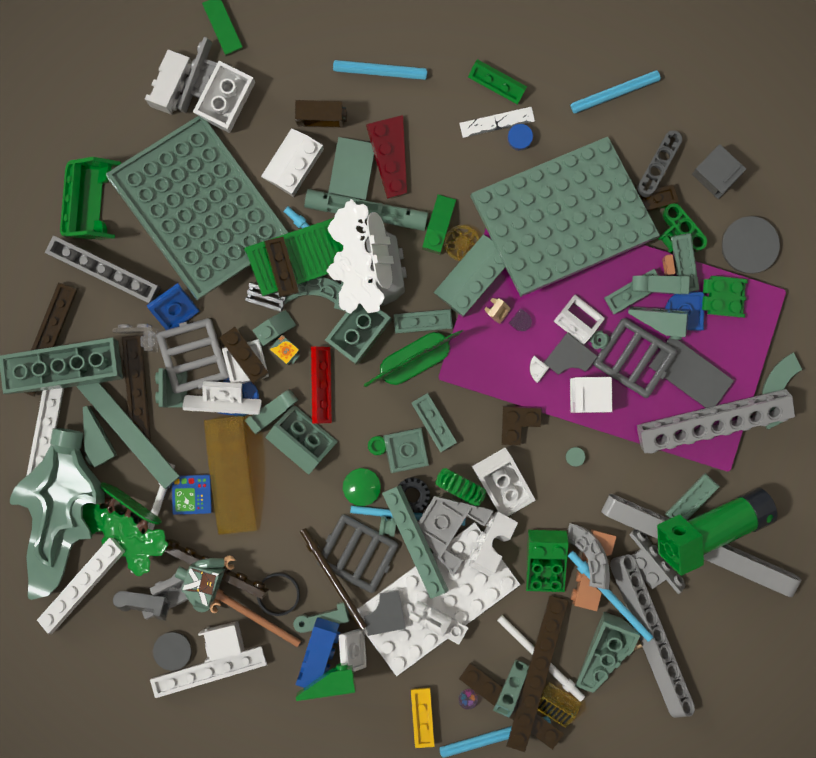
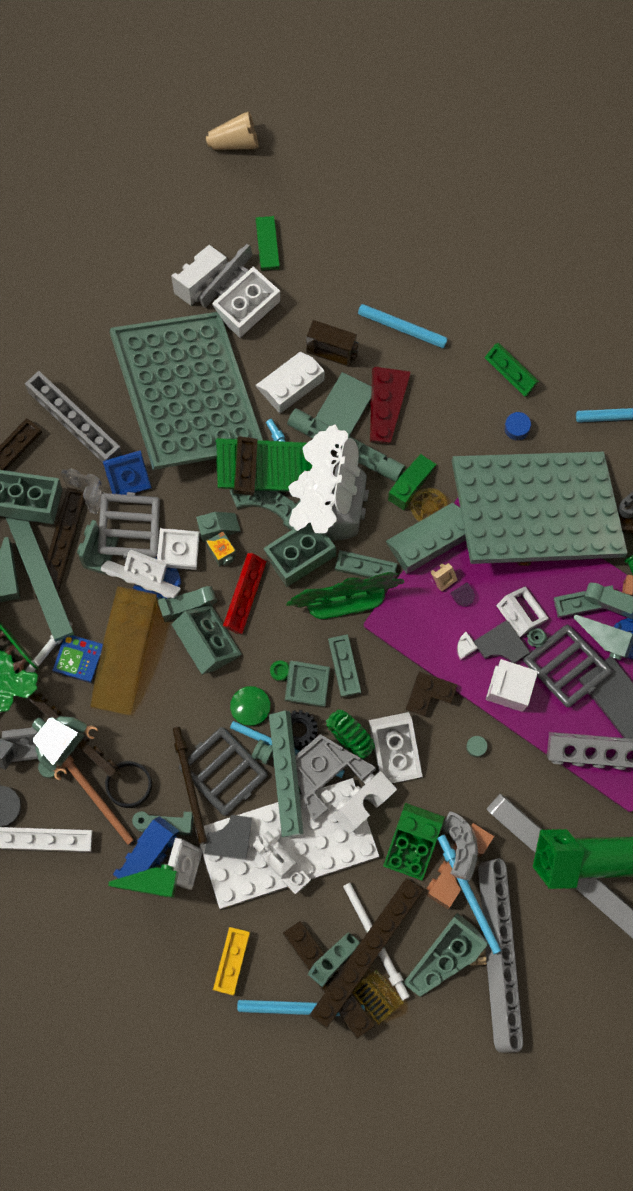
camera: 20 degrees right, 15 degrees down
(83, 198) = (80, 349): green windscreen -> none
(222, 641) = (55, 810): white piece -> none
(243, 355) = (179, 540): dark brown plate -> none
(250, 292) = (208, 486): tile -> none
(468, 699) = (285, 958): clear purple tile -> none
(497, 122) = (498, 406): white sticker -> none
(652, 565) = (522, 880): light grey bracket -> none
(693, 498) = (591, 822): sand green plate -> none

